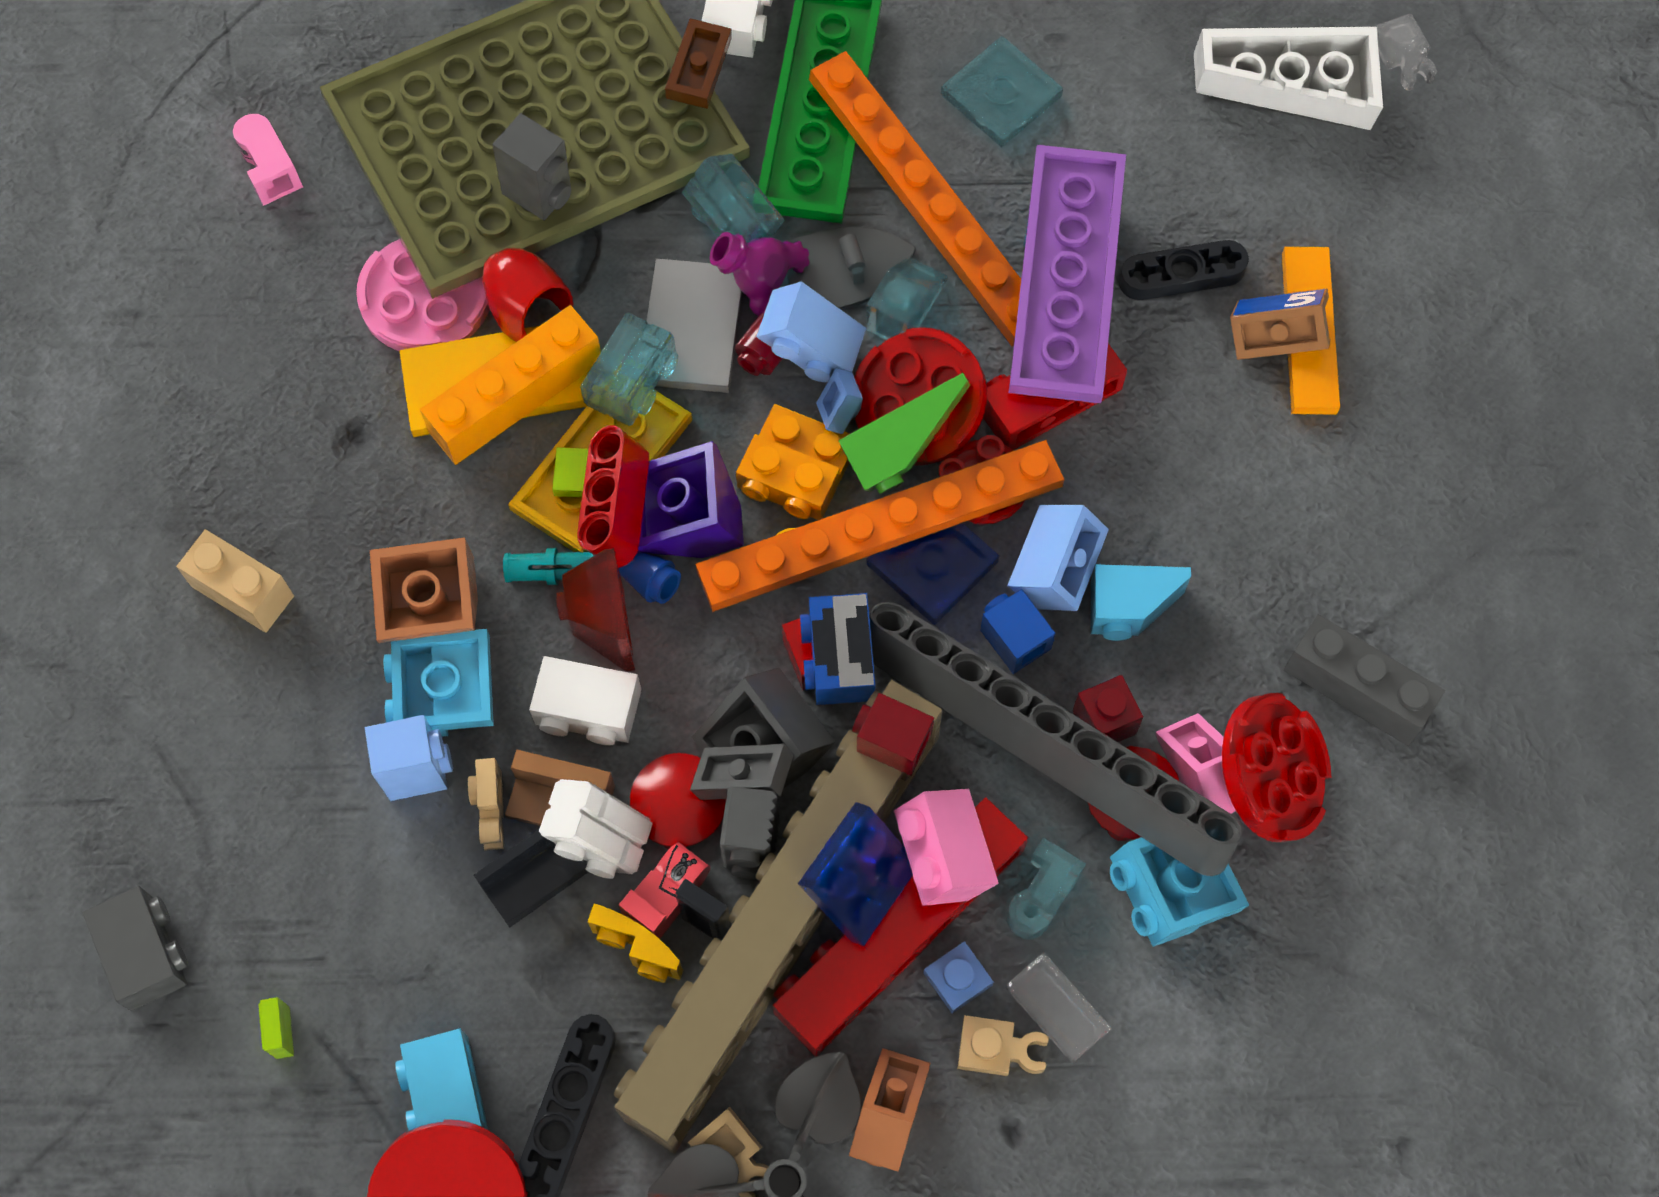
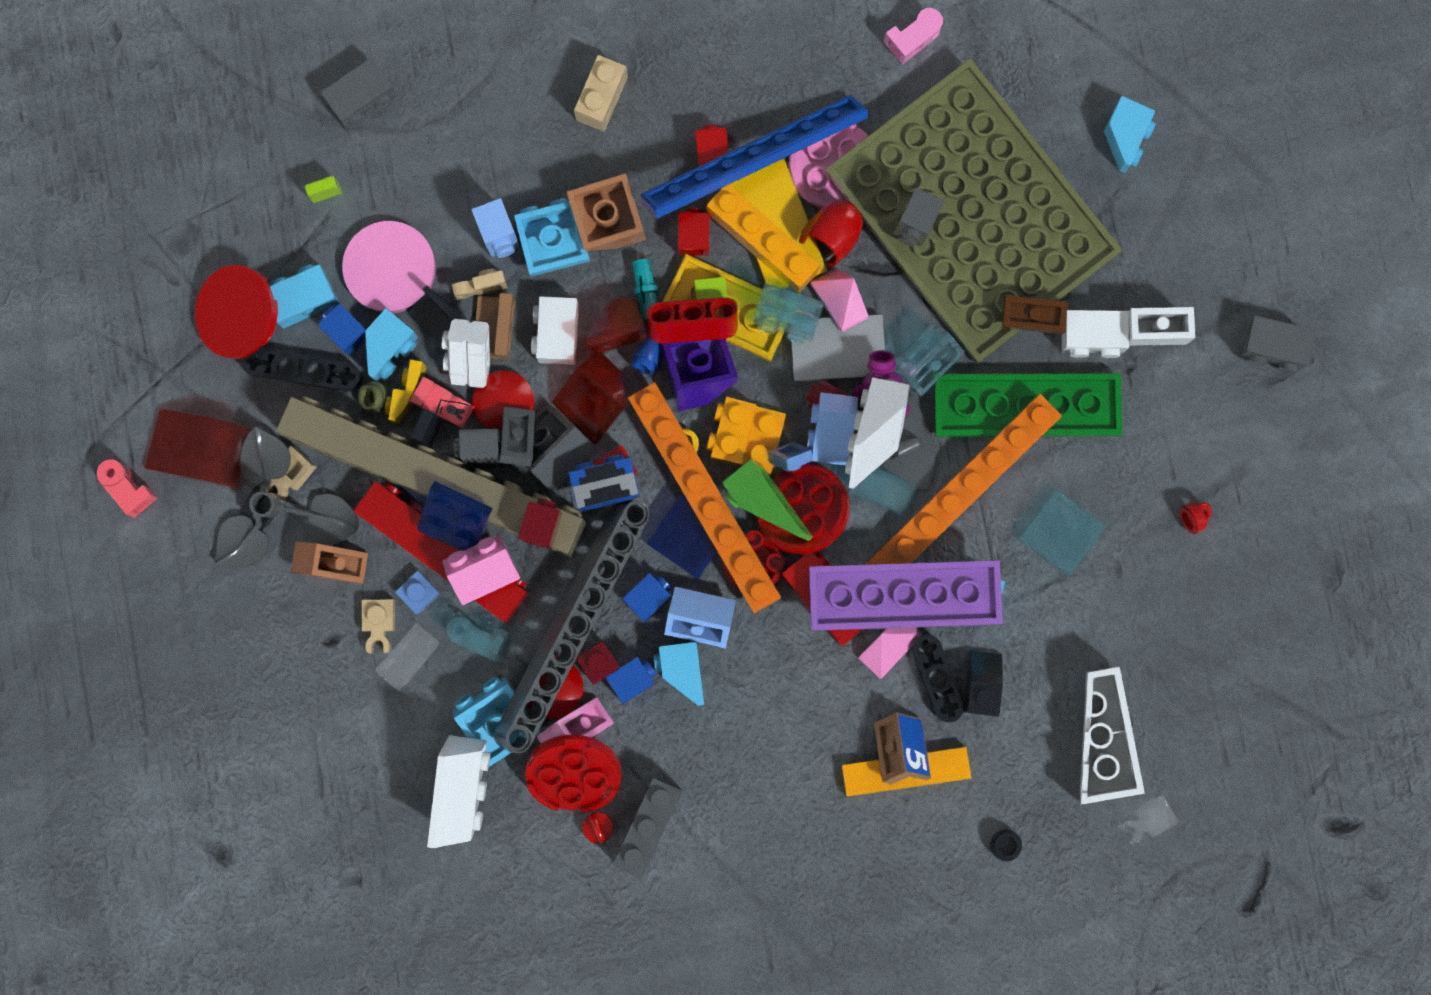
camera: 80 degrees right, 15 degrees up
(362, 441) = (710, 143): none -> red brick
(390, 379) = (753, 156): none -> blue tile
(427, 946) = (388, 266): none -> bright pink tile
(480, 484) = (694, 232): none -> red brick
(511, 1029) = (342, 328): none -> blue brick
(549, 963) = (385, 344): none -> medium azure slope
(617, 293) = (840, 298): none -> bright pink slope
(629, 1010) = (372, 396): none -> olive plate
(698, 658) = (593, 397): none -> clear red slope
(799, 250) = (878, 428): none -> white slope
(1136, 330) = (888, 649): none -> bright pink slope
(1141, 667) = (631, 679): none -> blue brick
(1201, 209) = (984, 684): none -> black slope
(1286, 945) = (458, 791): none -> white slope
(1355, 758) = (598, 827): none -> red tile
(1425, 220) = (1006, 845): none -> black plate

